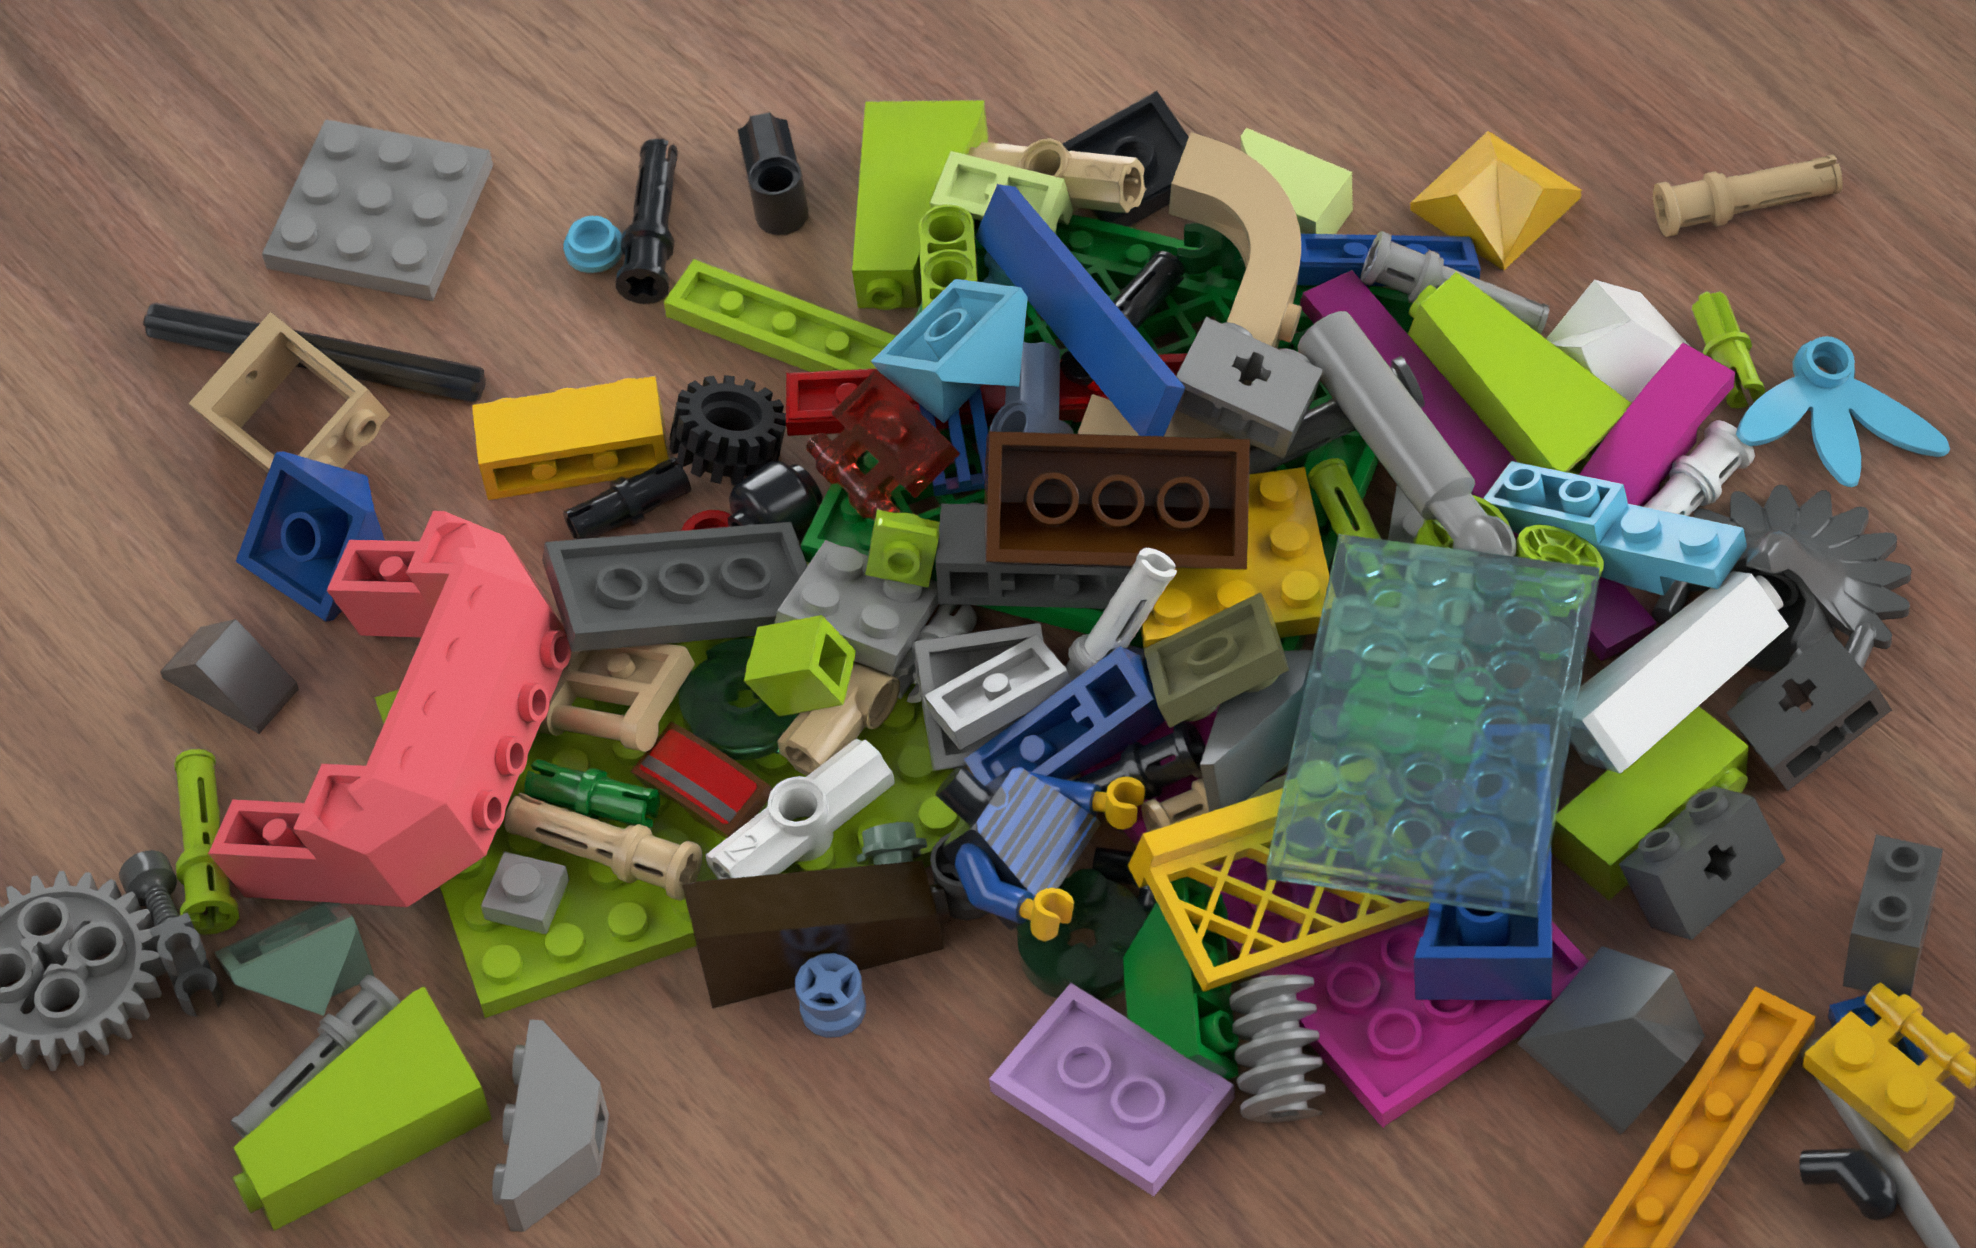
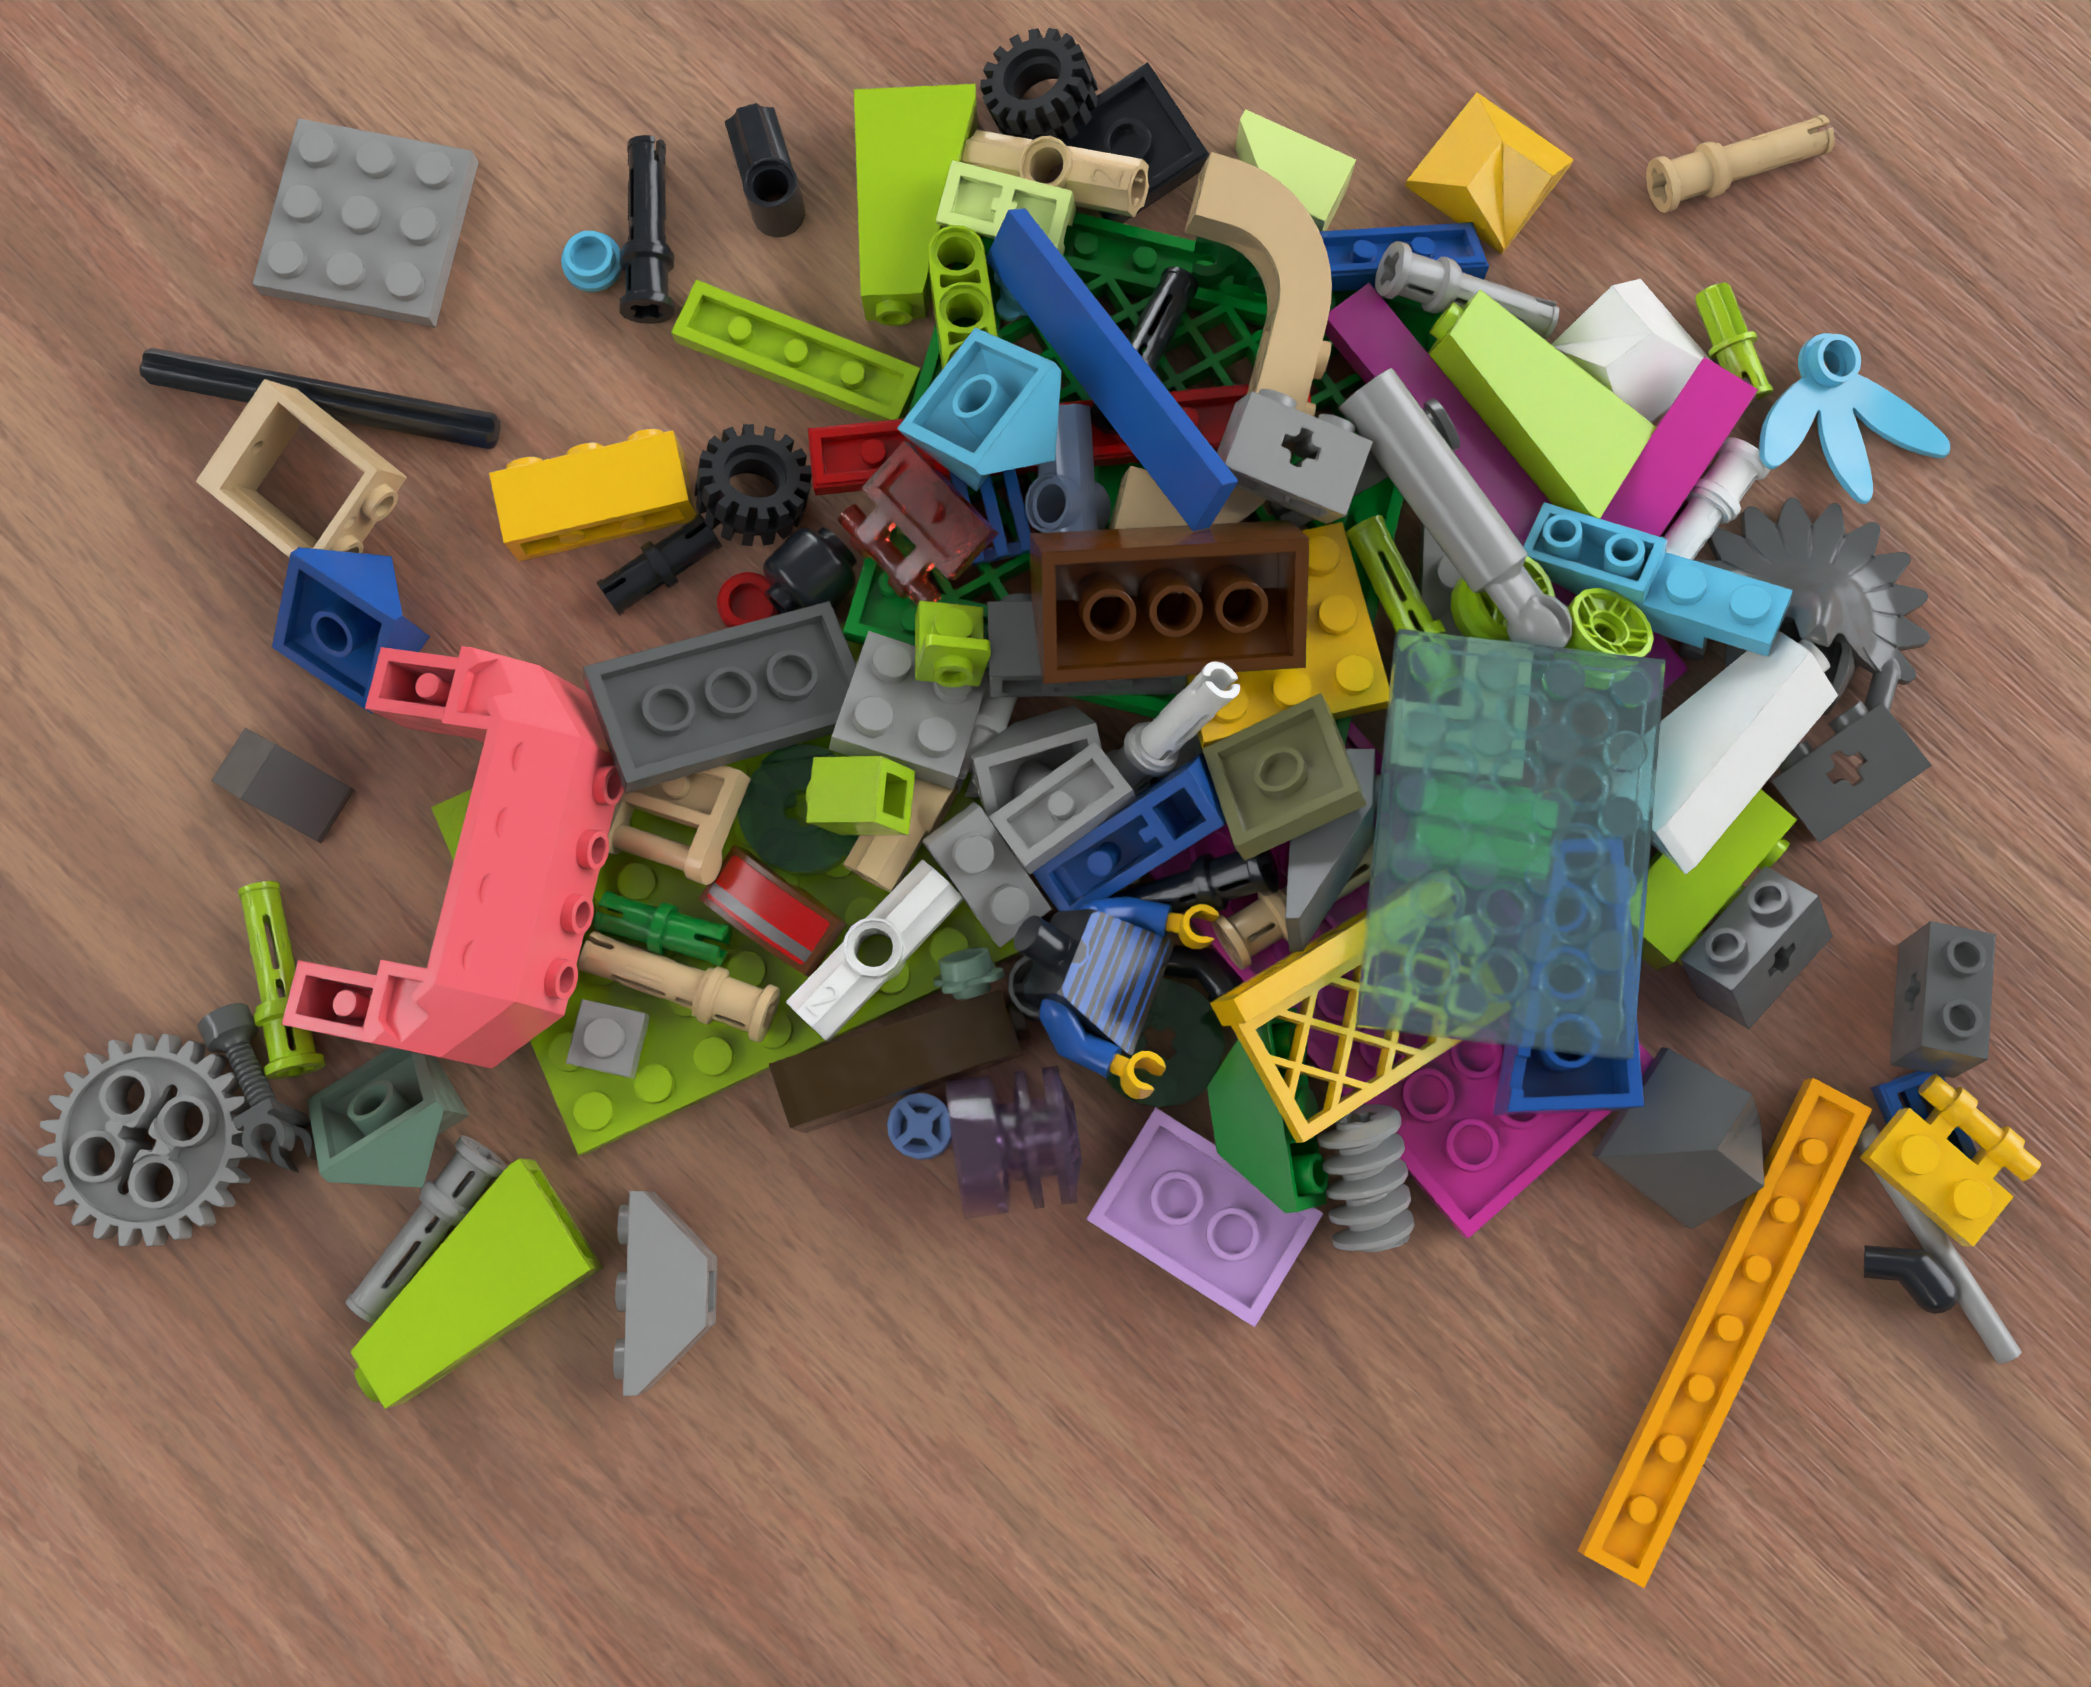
camera: 10 degrees left, 25 degrees up
(914, 749) = (986, 873): none -> light grey plate
(919, 993) = (1012, 1142): none -> clear purple wheel
(1049, 104) = (1028, 65): none -> black tyre

